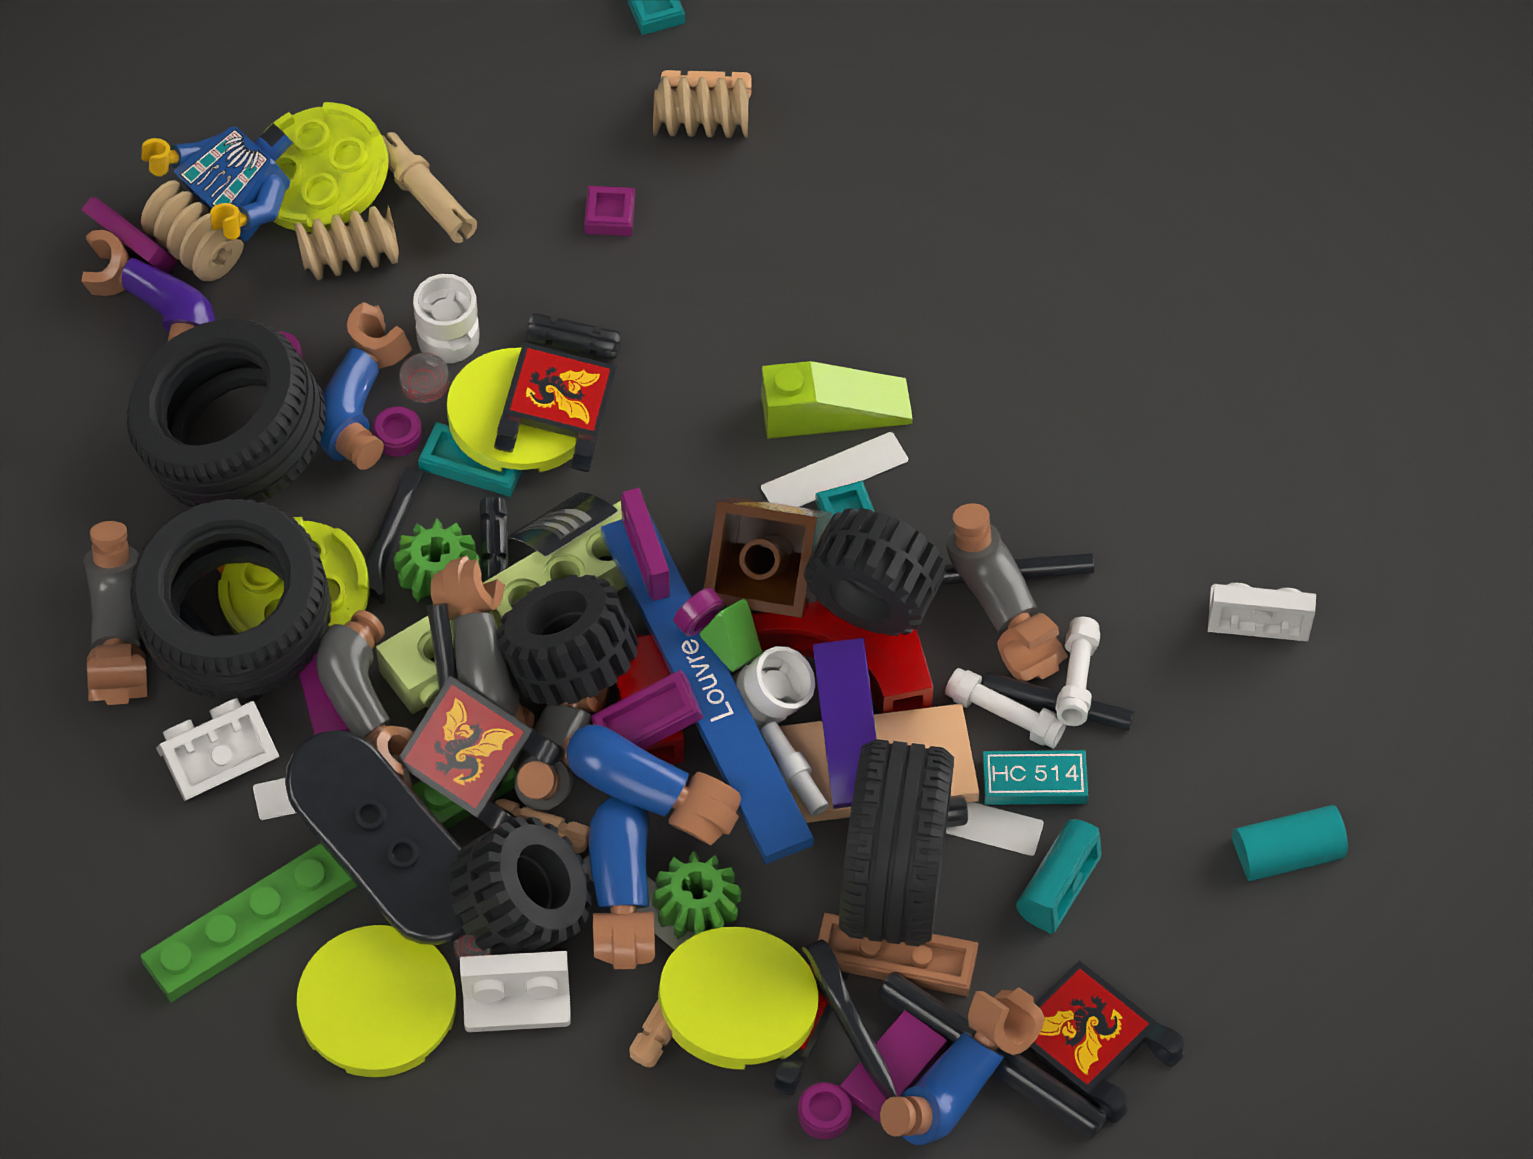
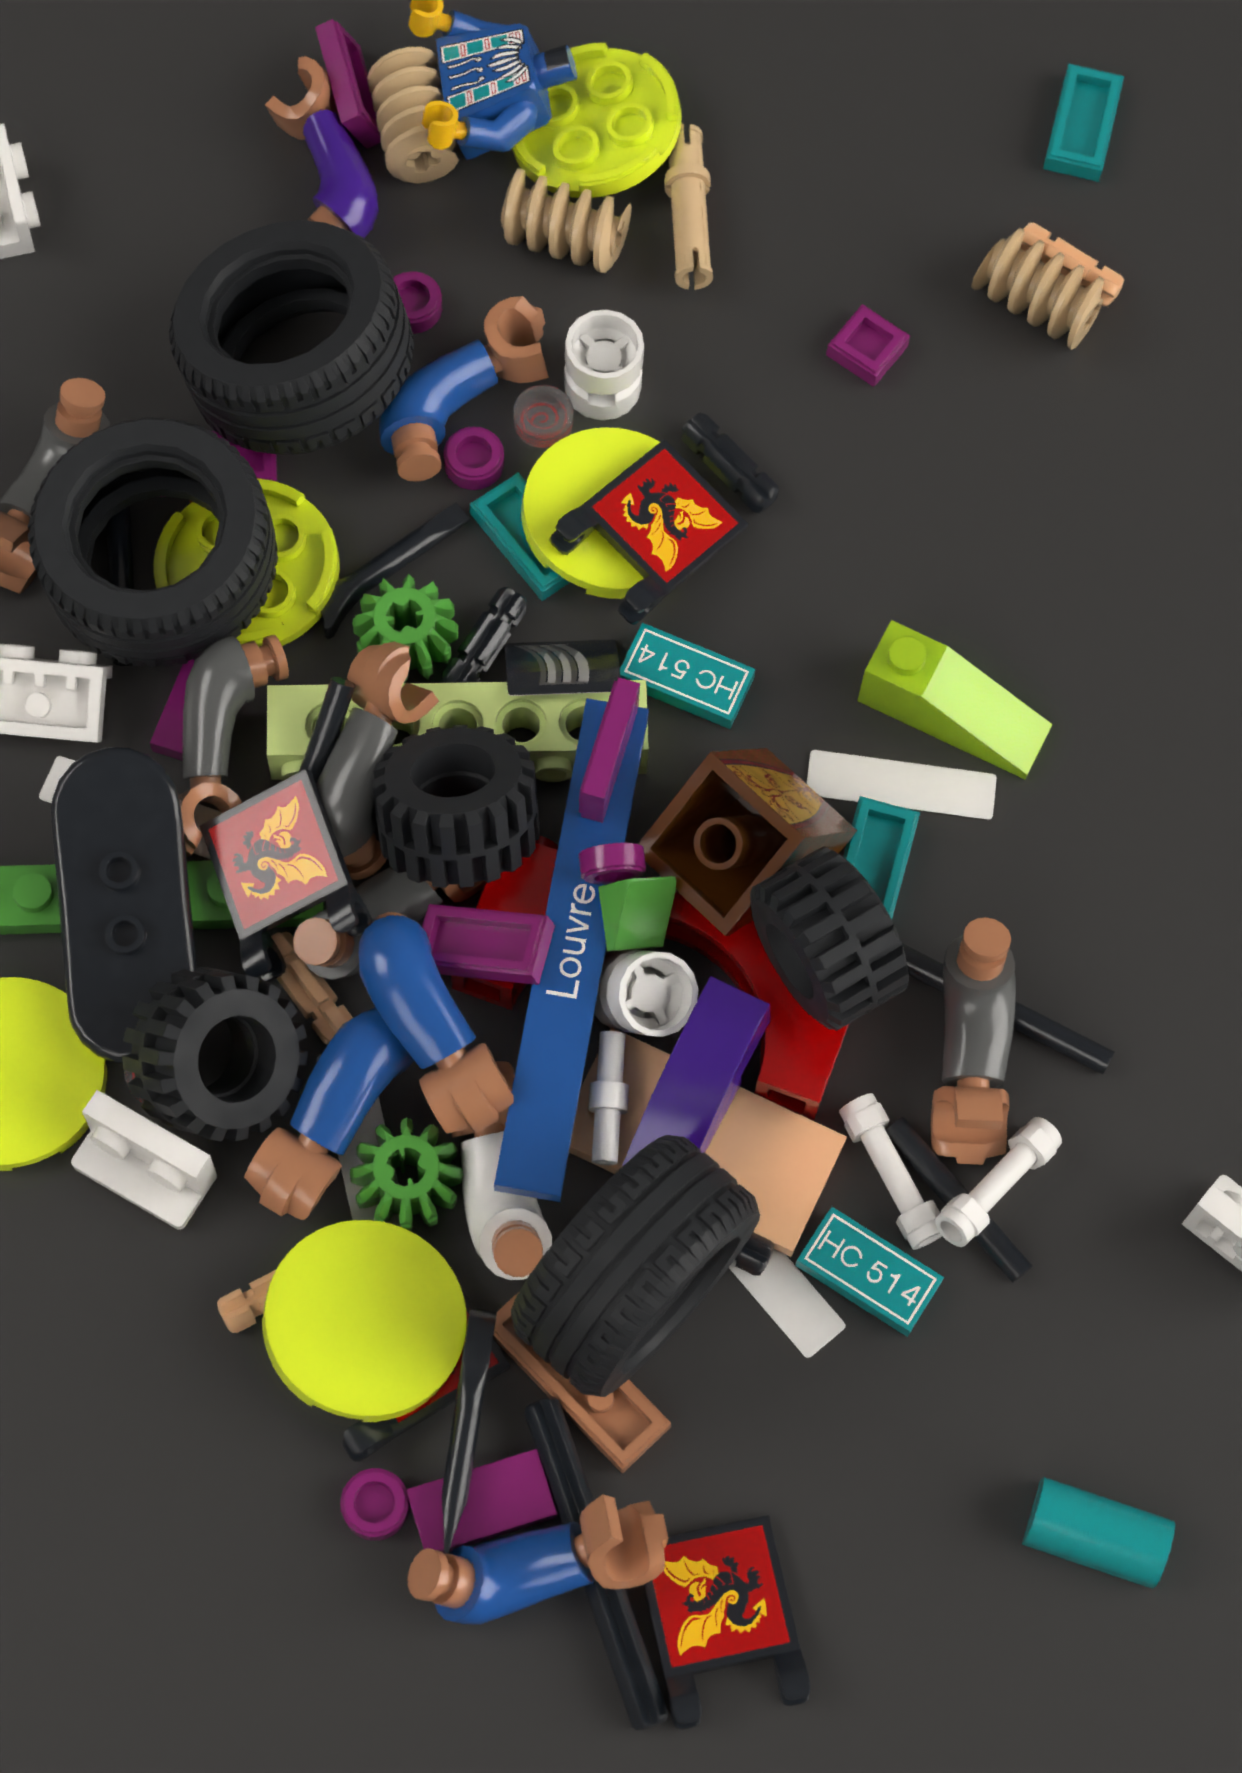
camera: 30 degrees right, 10 degrees up
(662, 481) = (688, 675): none -> teal tile
(781, 887) = (503, 1226): none -> white piece
(1061, 875) = (814, 1405): teal brick -> none

